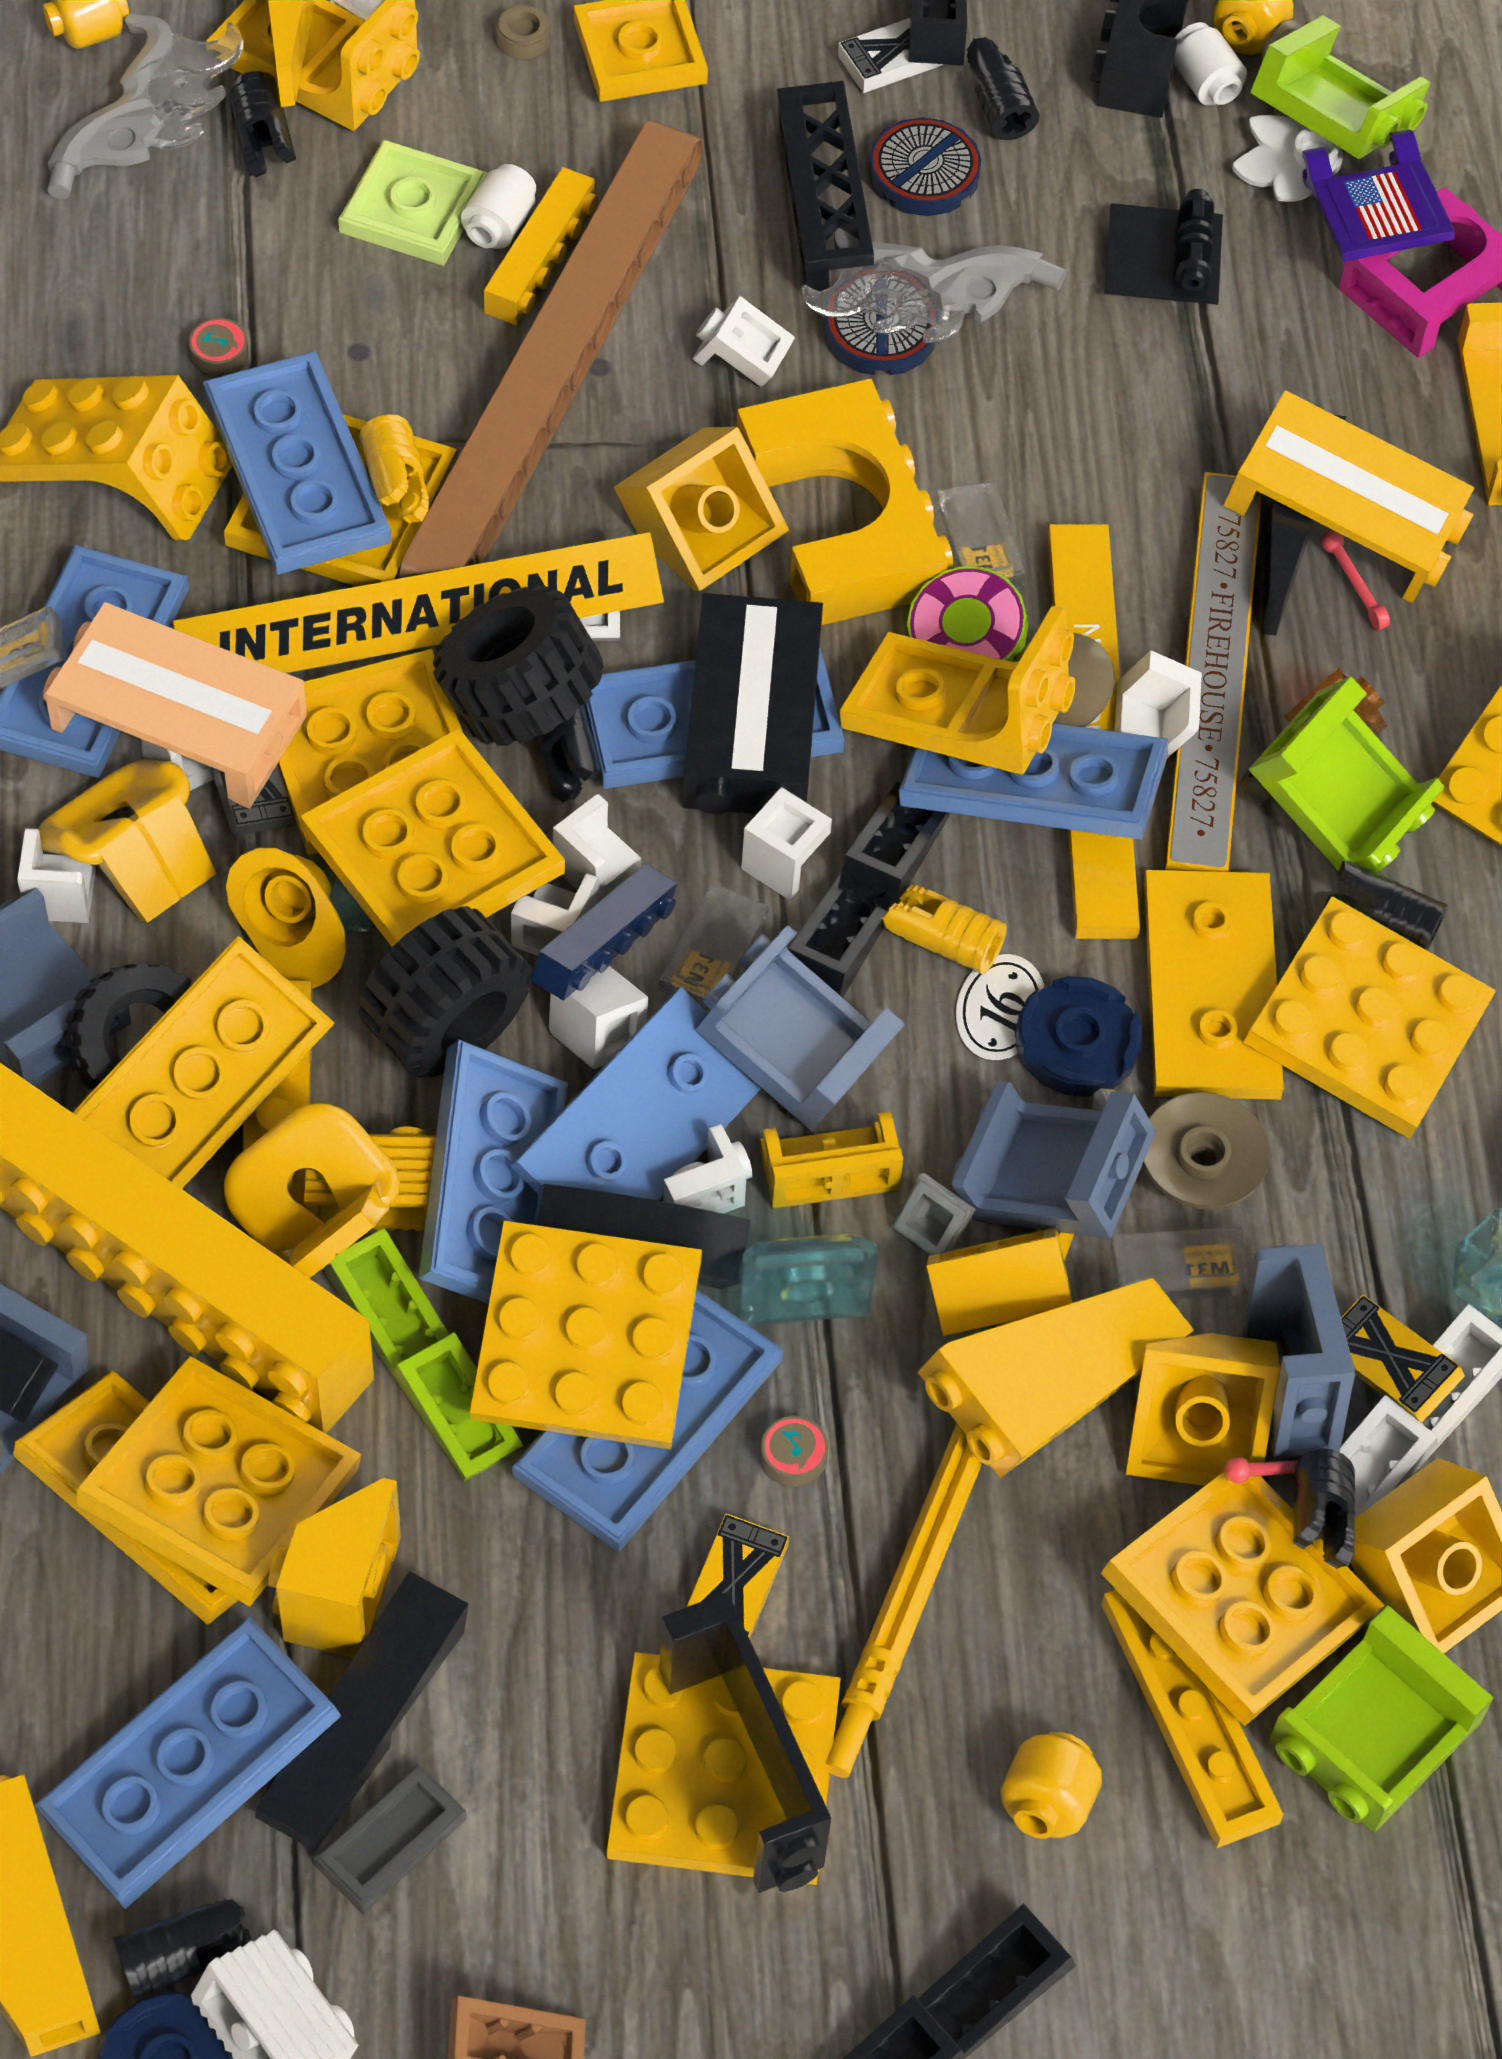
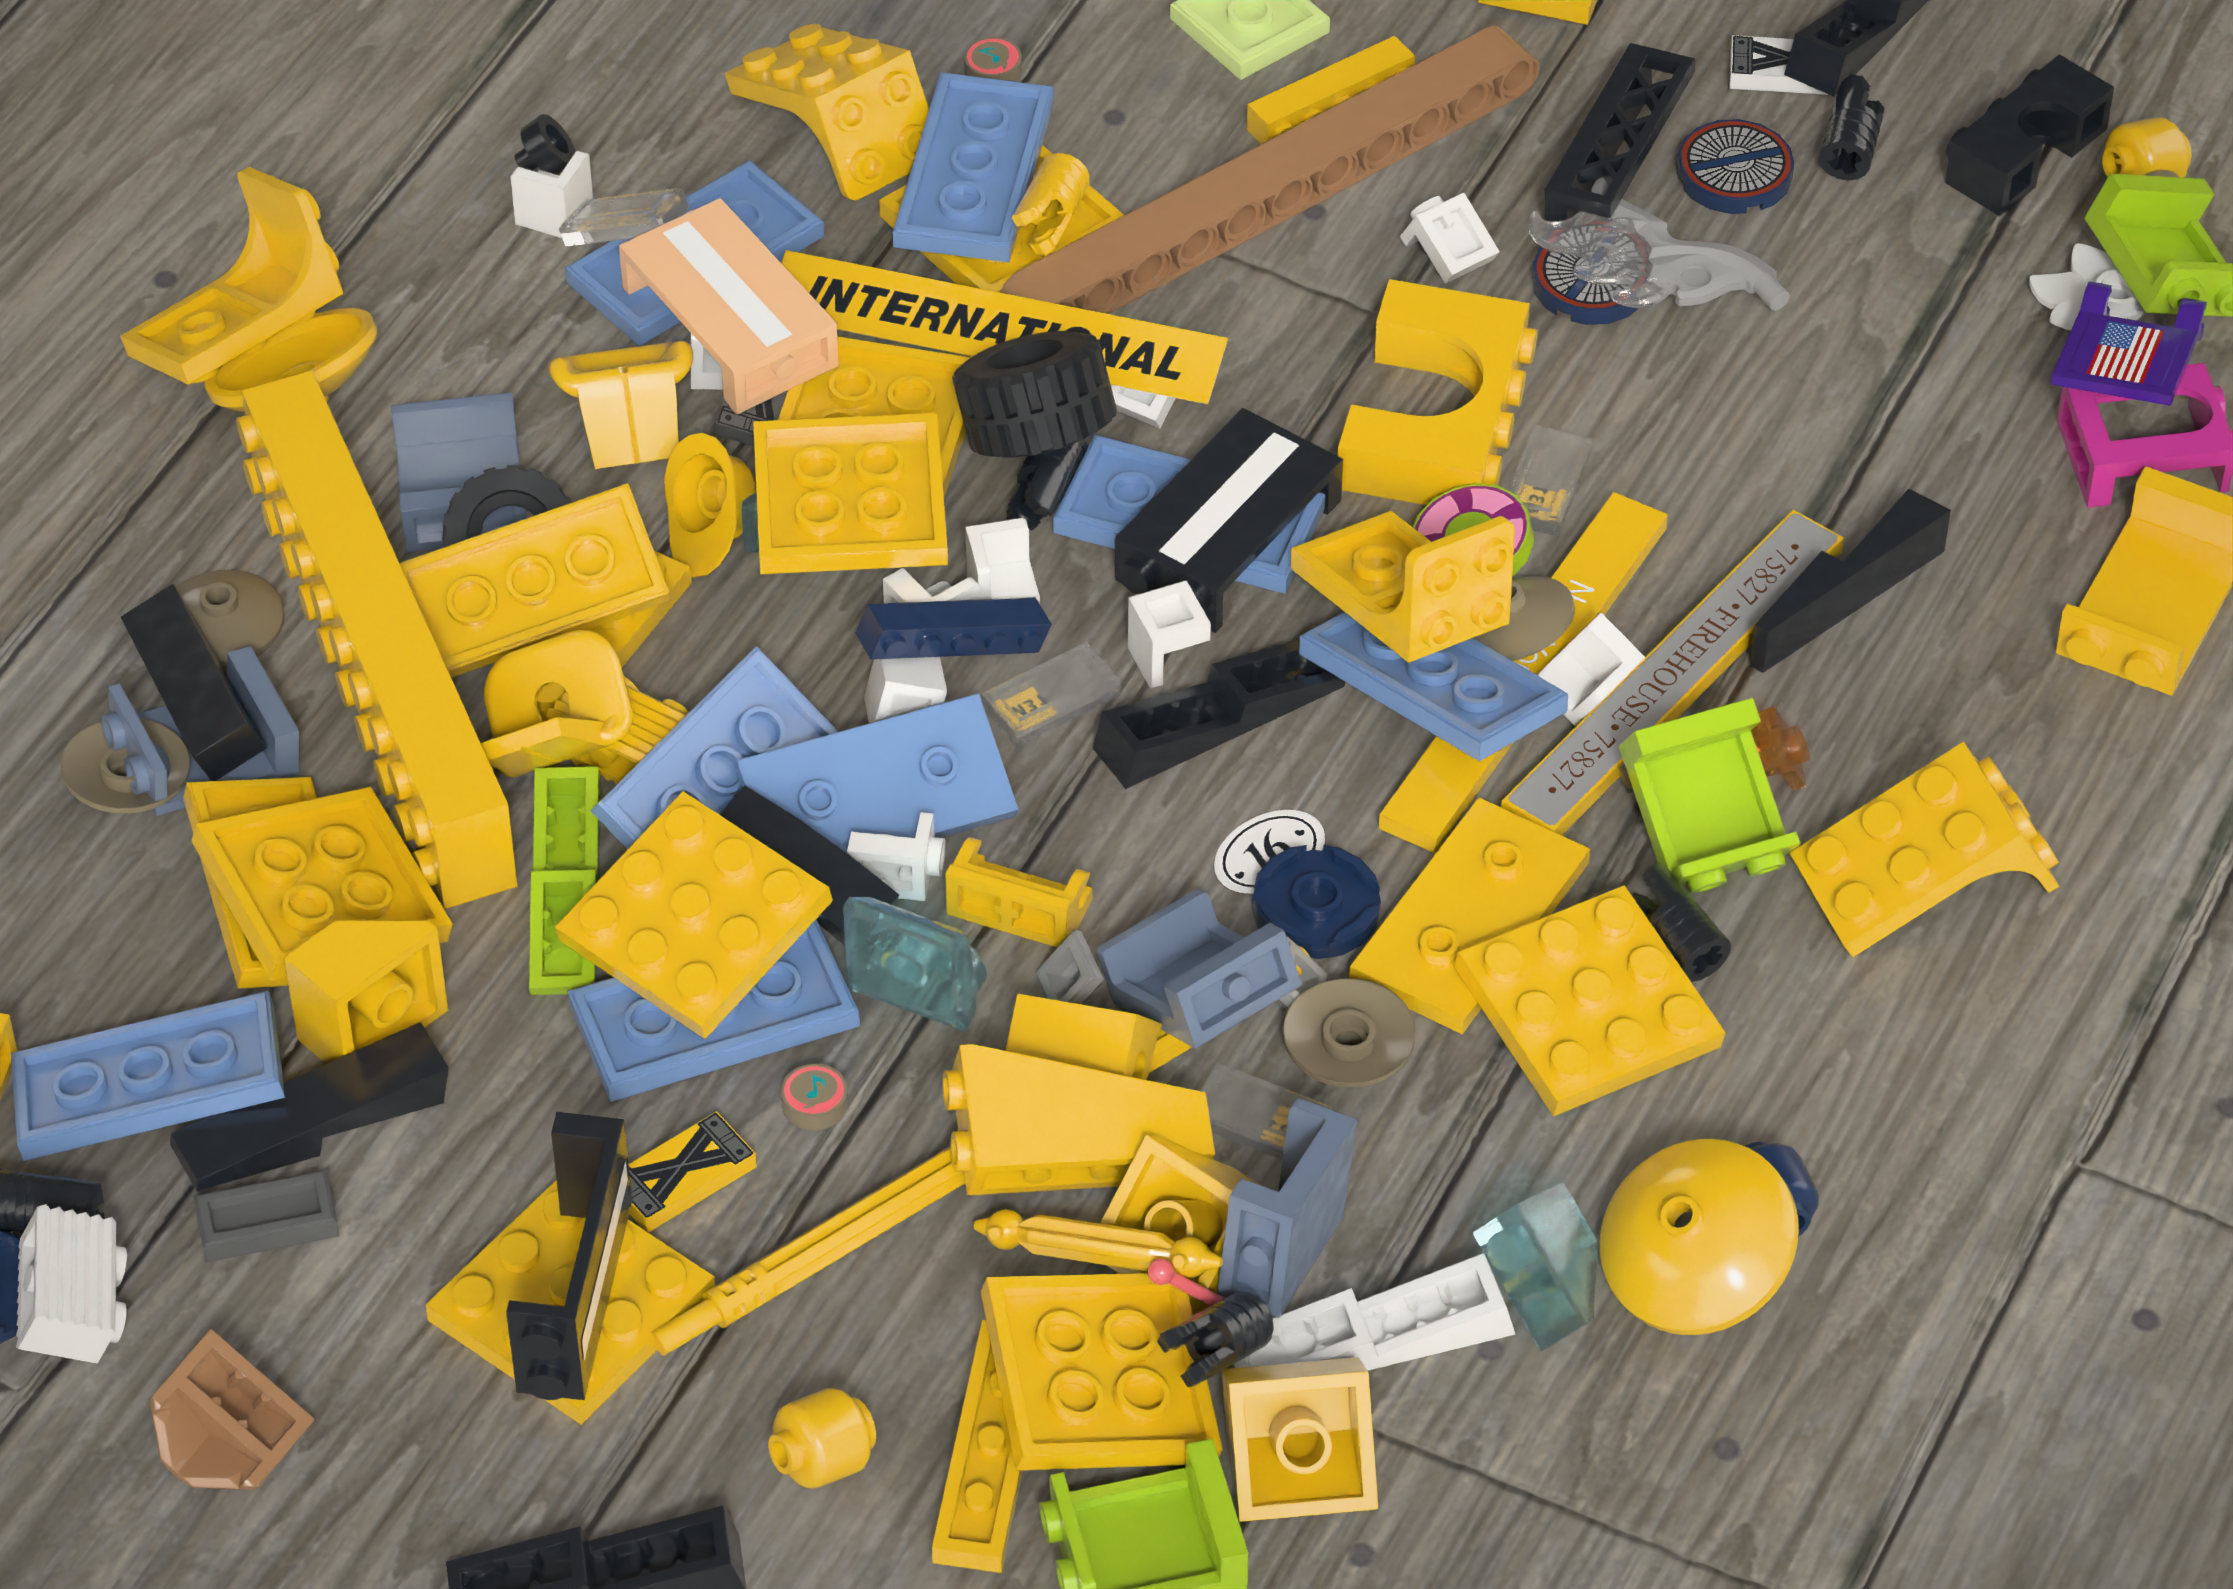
camera: 35 degrees right, 10 degrees down
(60, 879) = (540, 407): white panel -> none
(444, 985) = (779, 595): black tyre -> none
(499, 207) = (1315, 45): white brick -> none
(703, 505) = (1308, 350): yellow slope -> none
(792, 1030) = (1056, 772): sand blue panel -> none
(946, 928) = (1262, 765): yellow hinge -> none
(1149, 1467) = (1096, 1242): none -> yellow wheel
(1166, 251) = (1907, 320): black hinge -> none
(1209, 64) = (2067, 182): white brick -> none
(1355, 488) = (1913, 575): yellow panel -> none
(1377, 614) = (1874, 619): coral hinge -> none
(1398, 1360) = (1383, 1267): tile -> none

